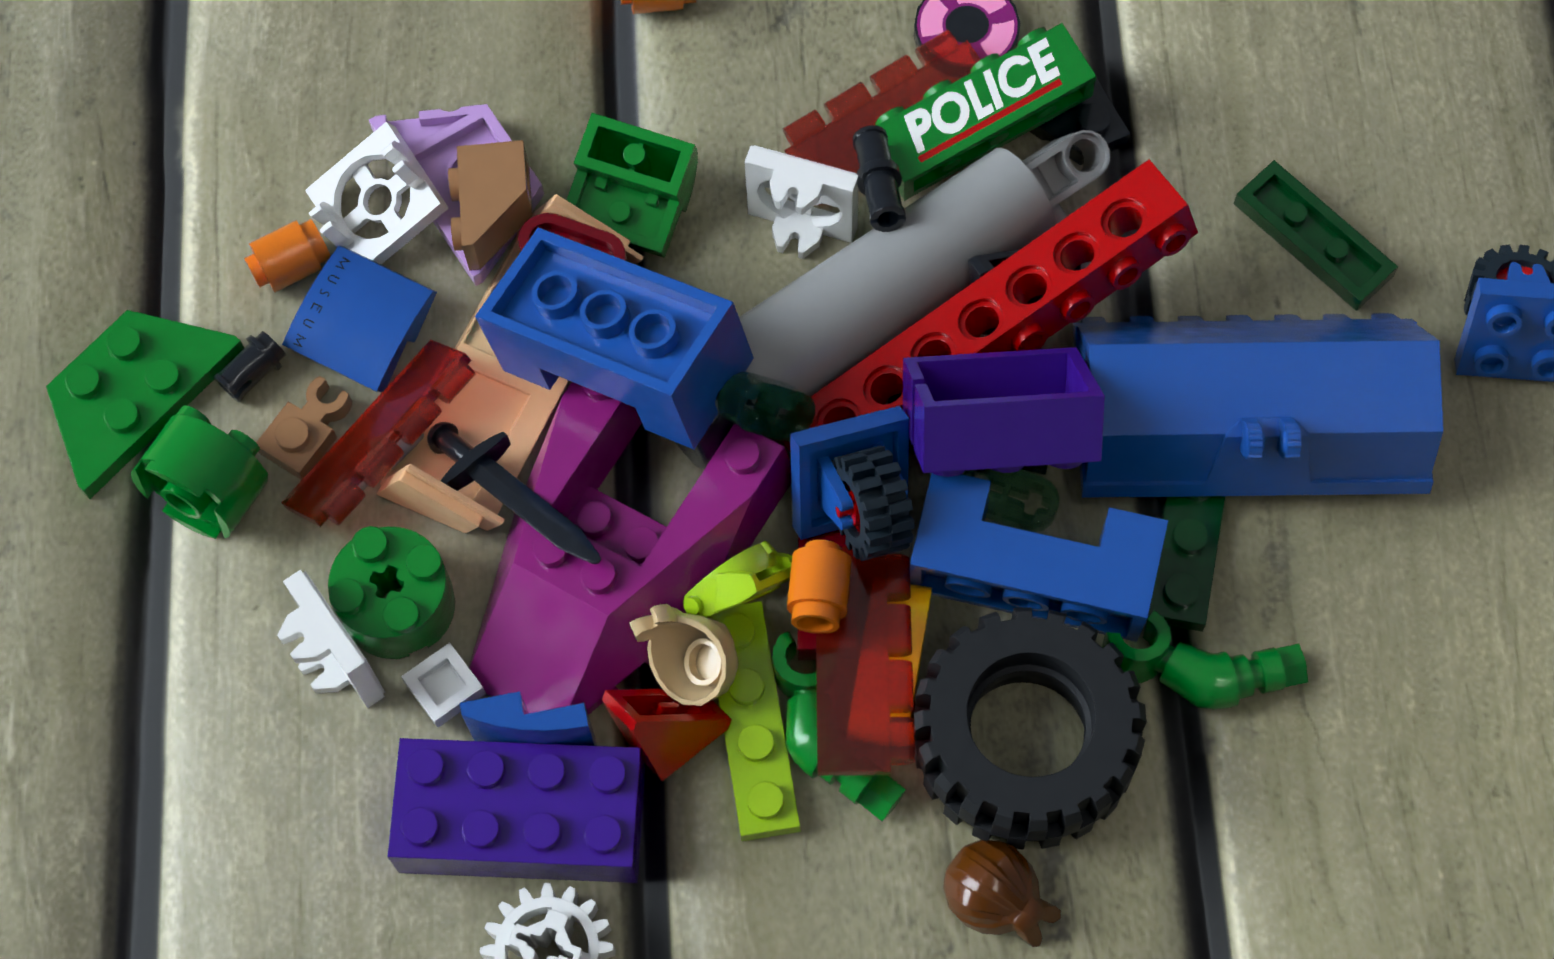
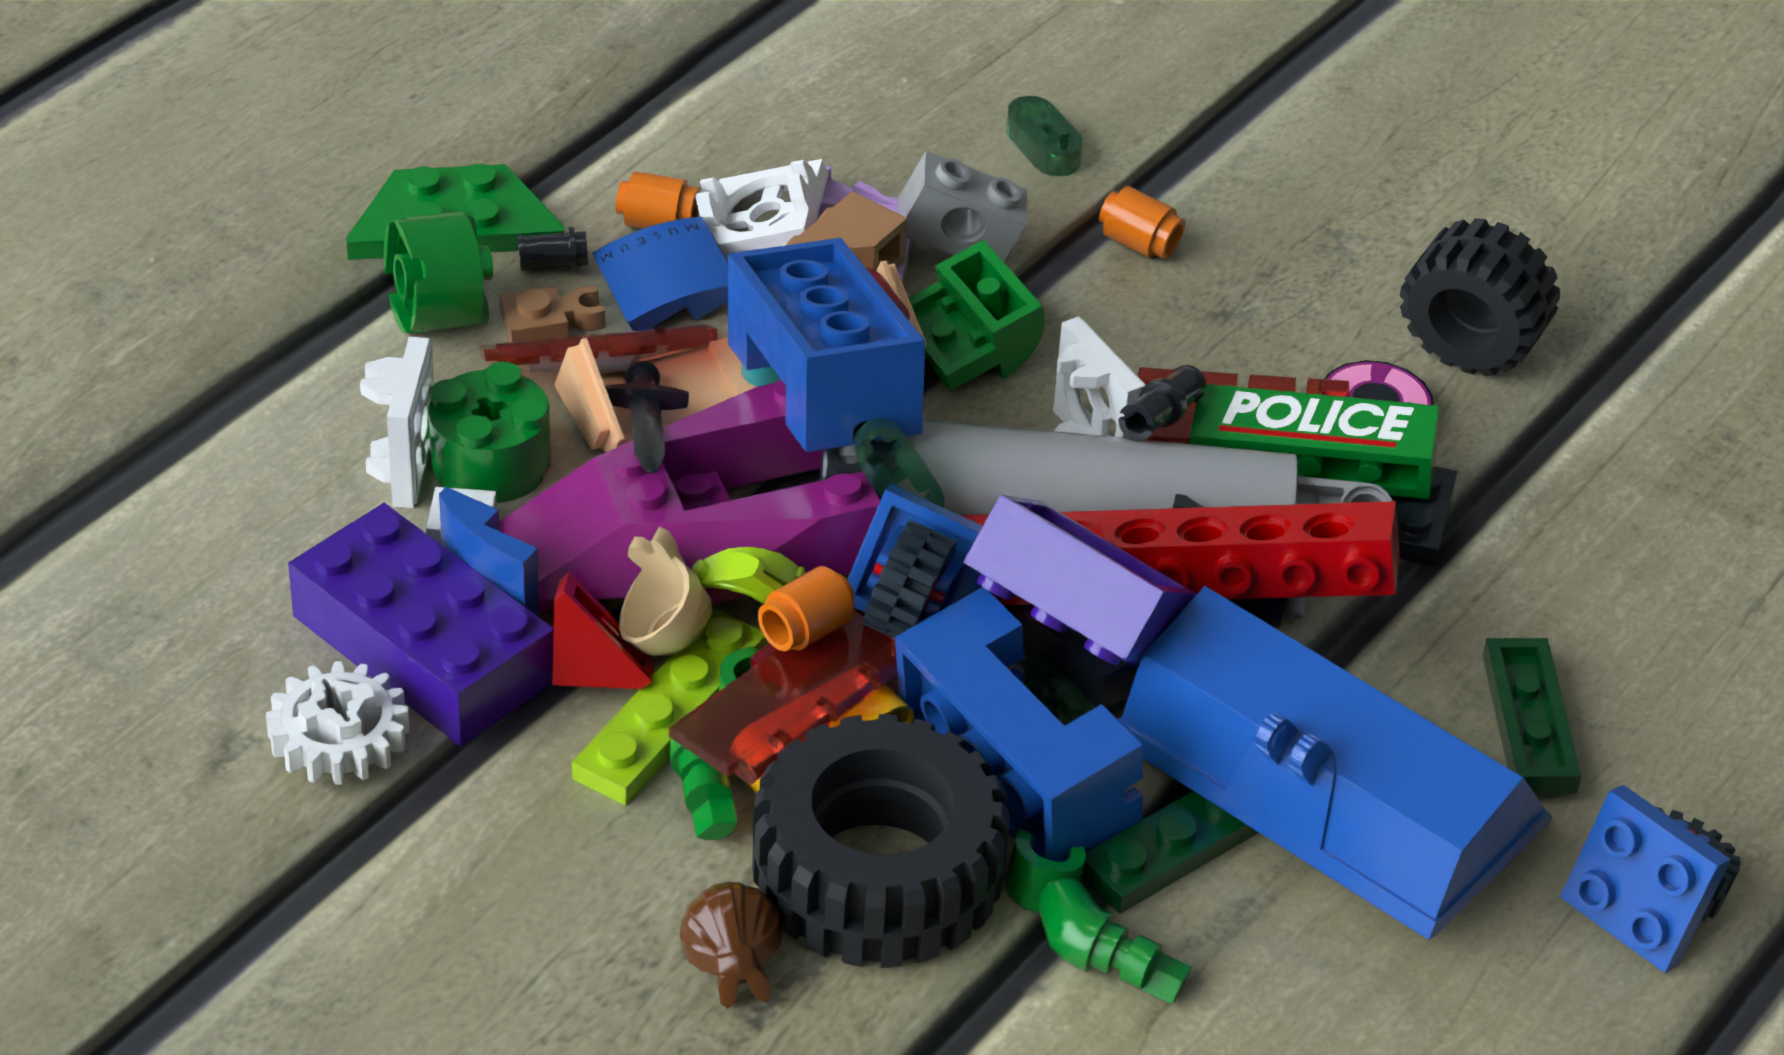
camera: 35 degrees right, 25 degrees down
(533, 87) = (960, 206): none -> light grey brick

